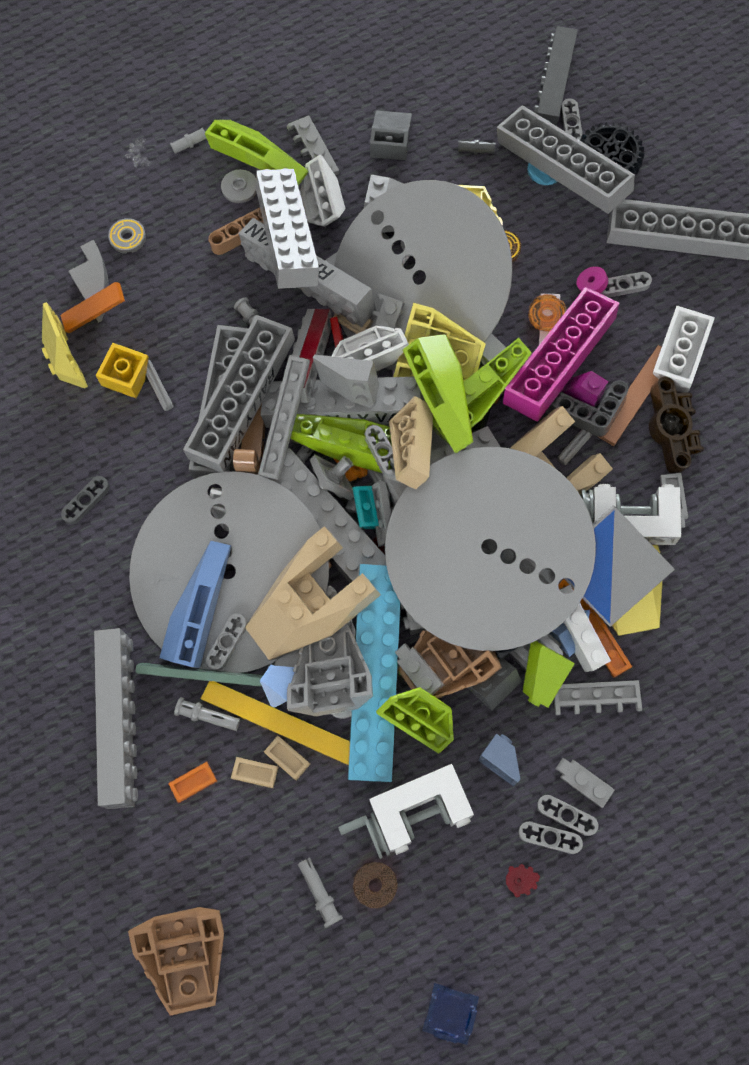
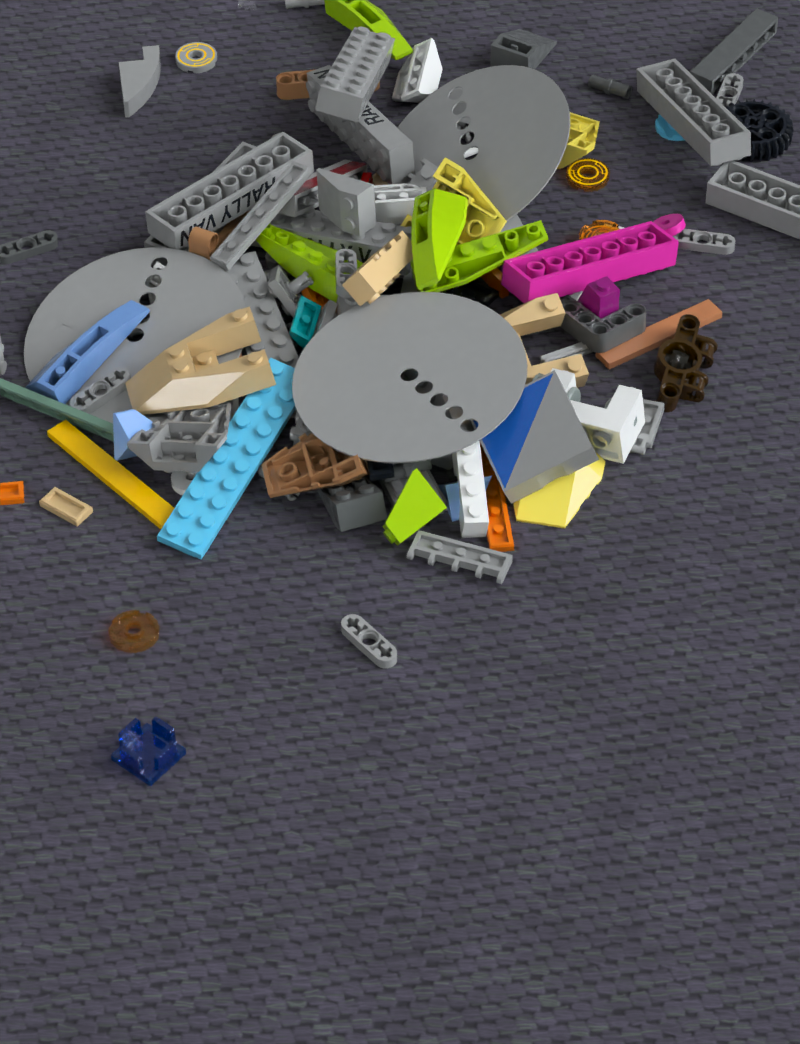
camera: 20 degrees right, 25 degrees down
(57, 350) = (72, 113): light yellow wedge -> none
(92, 307) = (124, 94): orange tile -> none
(123, 370) = (125, 154): yellow slope -> none
(158, 387) = (154, 180): light grey axle -> none
(198, 712) = (37, 439): light grey pin -> none
(239, 186) = (329, 49): light grey piece -> none
(287, 758) = (105, 505): tan tile -> none
(312, 141) = (436, 29): light grey hinge -> none
(323, 902) = (73, 623): light grey pin -> none
(391, 807) = (208, 563): white piece -> none
(418, 669) = (280, 464): light grey hinge -> none
(420, 717) = (259, 497): lime wedge -> none
(502, 759) = (322, 562): sand blue slope -> none
(521, 880) = (288, 676): dark red piece -> none
(567, 836) = (335, 643): light grey beam -> none
(585, 782) = (405, 622): light grey hinge -> none
(683, 347) = (732, 303): white slope -> none

